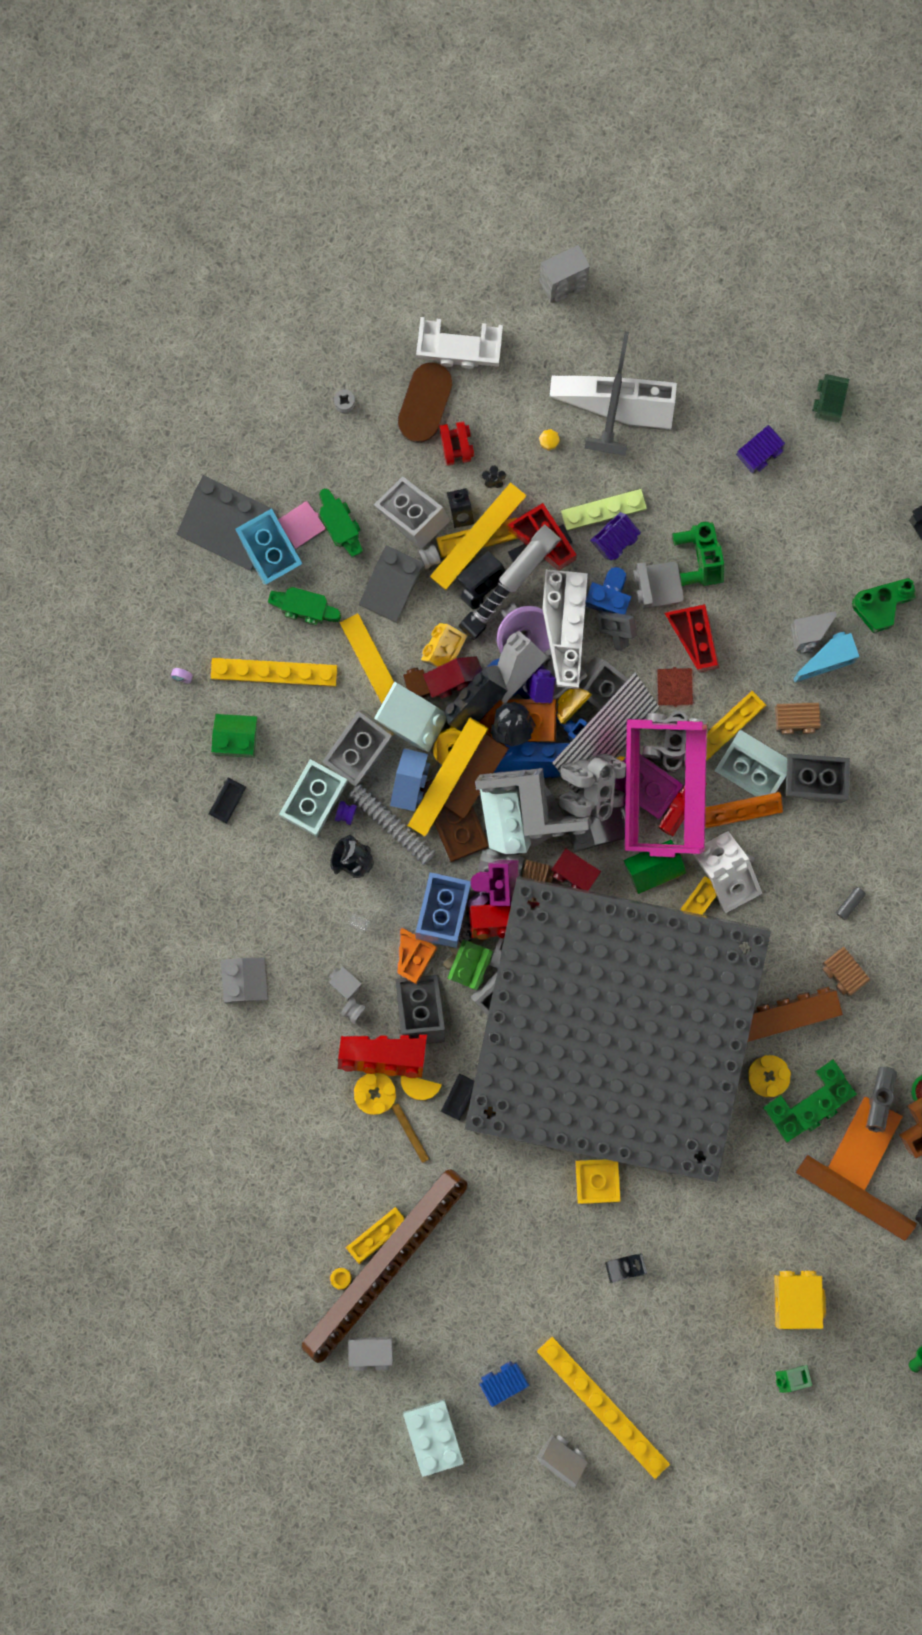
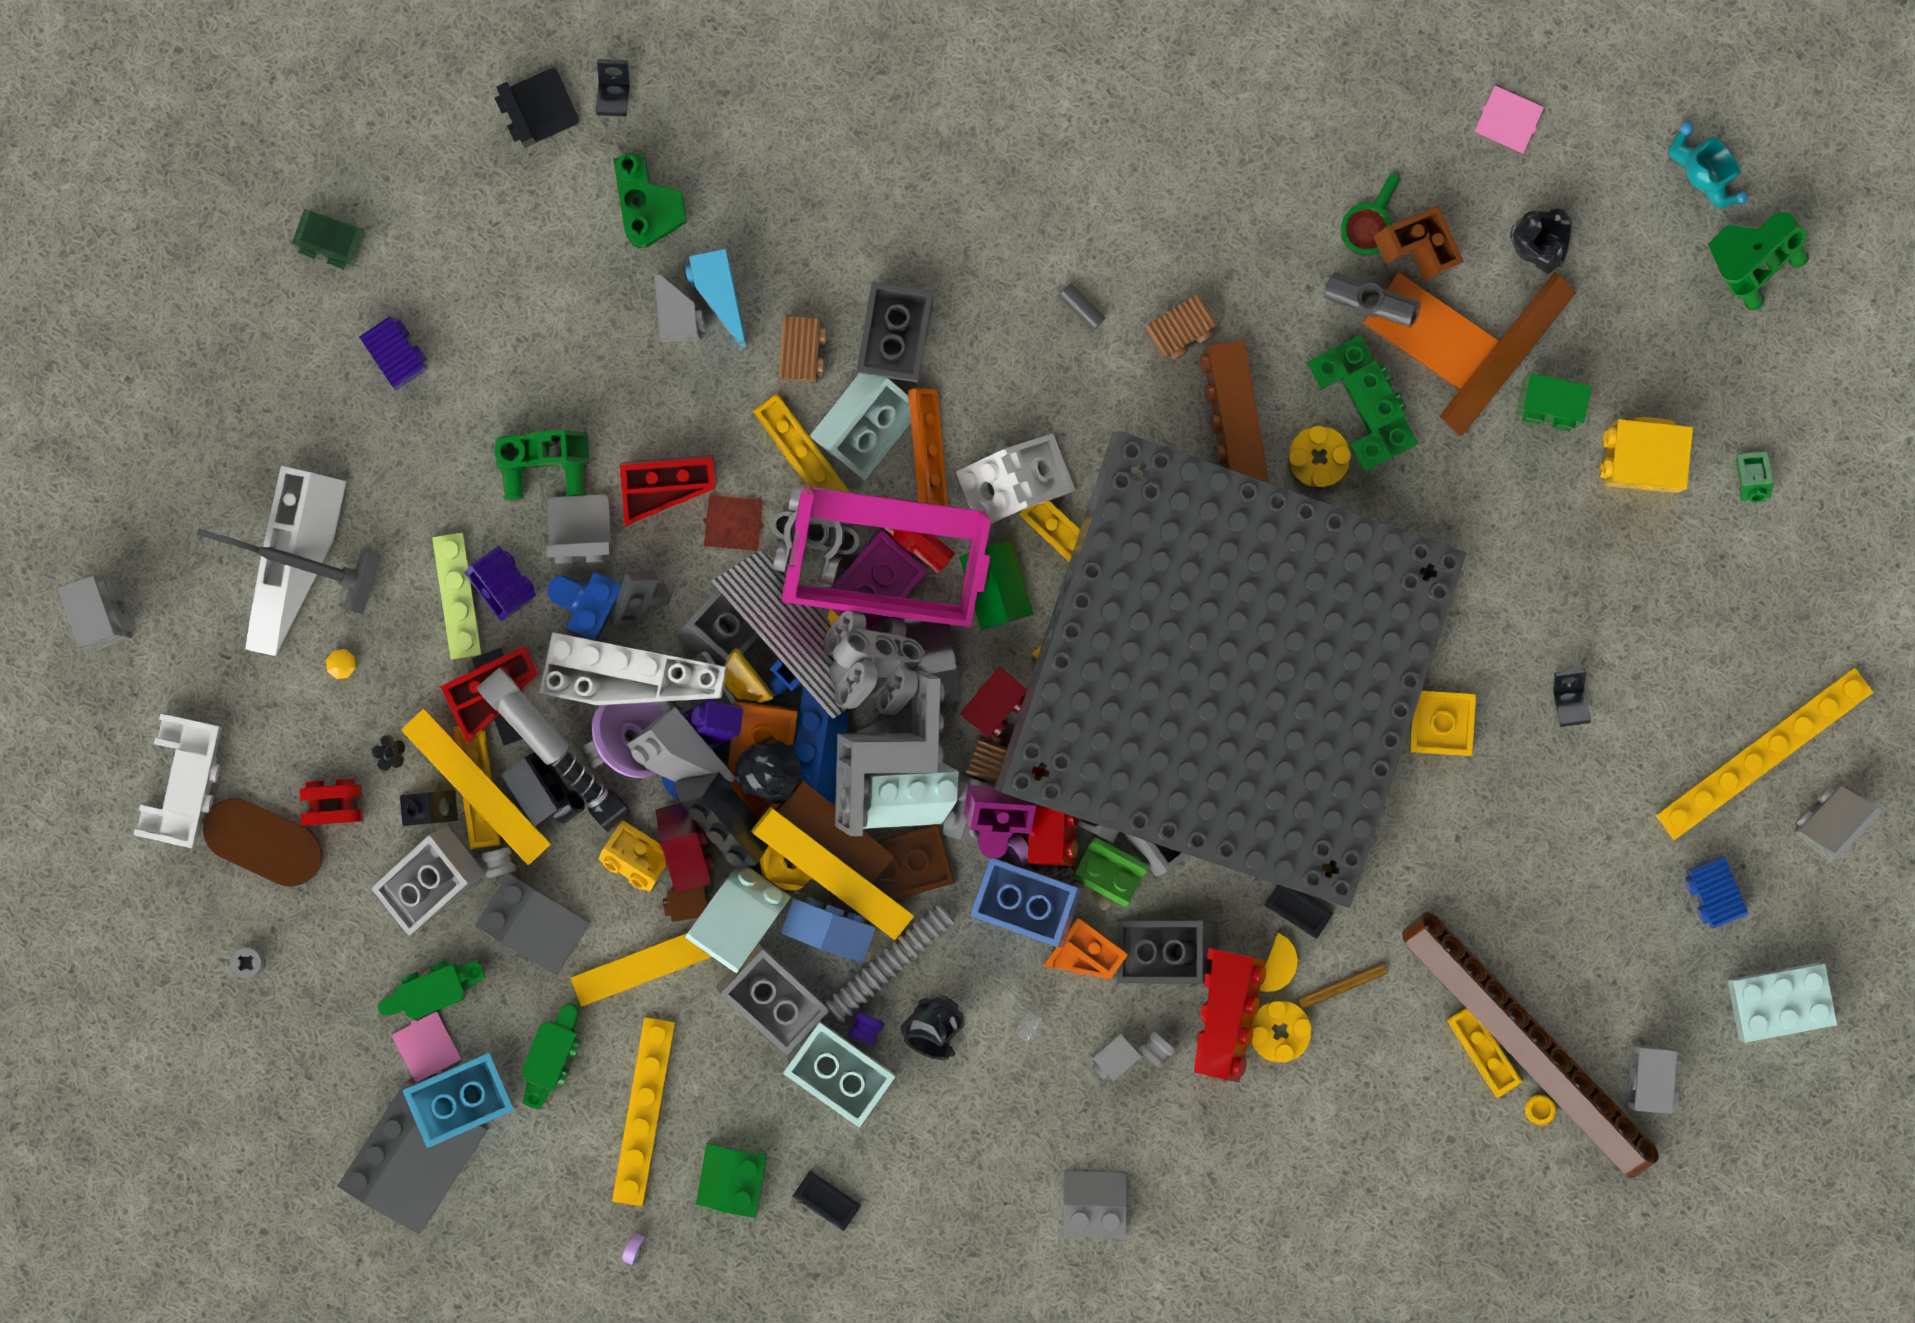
camera: 80 degrees left, 5 degrees up
(827, 1232) = (1553, 401): none -> green brick

